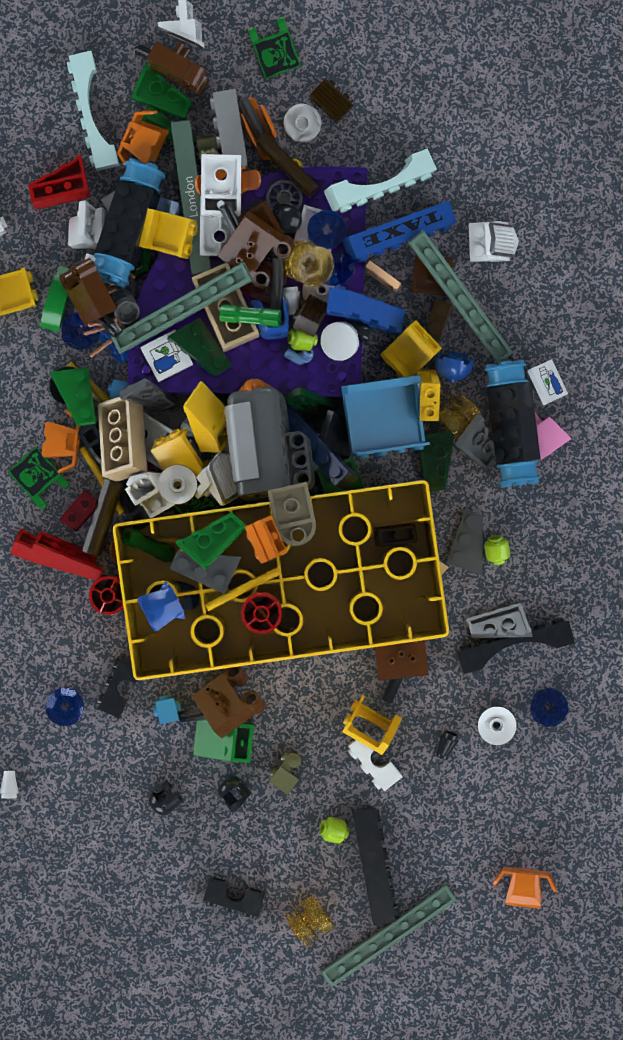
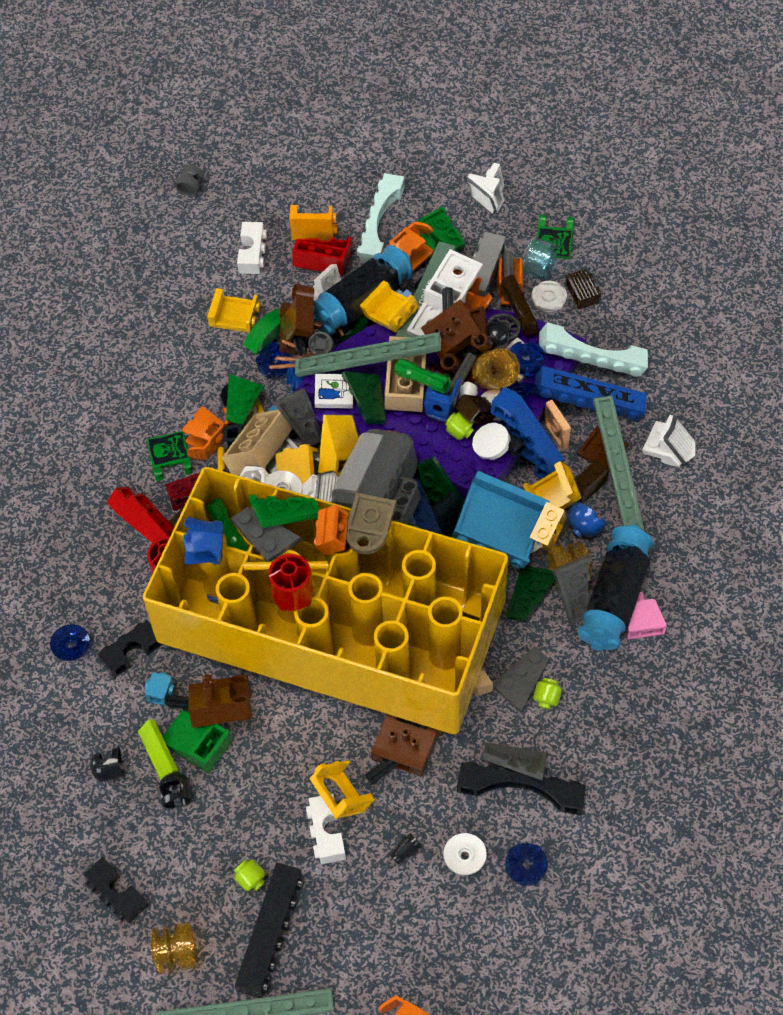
camera: 35 degrees right, 30 degrees down
(32, 159) = (312, 224): none -> light orange panel
(175, 66) = (465, 209): reddish brown piece -> none
(198, 764) = (157, 749): none -> lime tile
(275, 88) = (540, 257): none -> clear light blue brick
(282, 776) = (230, 797): olive brick -> none
(299, 358) = (454, 442): medium blue arm -> none
(547, 382) = (666, 571): white tile -> none

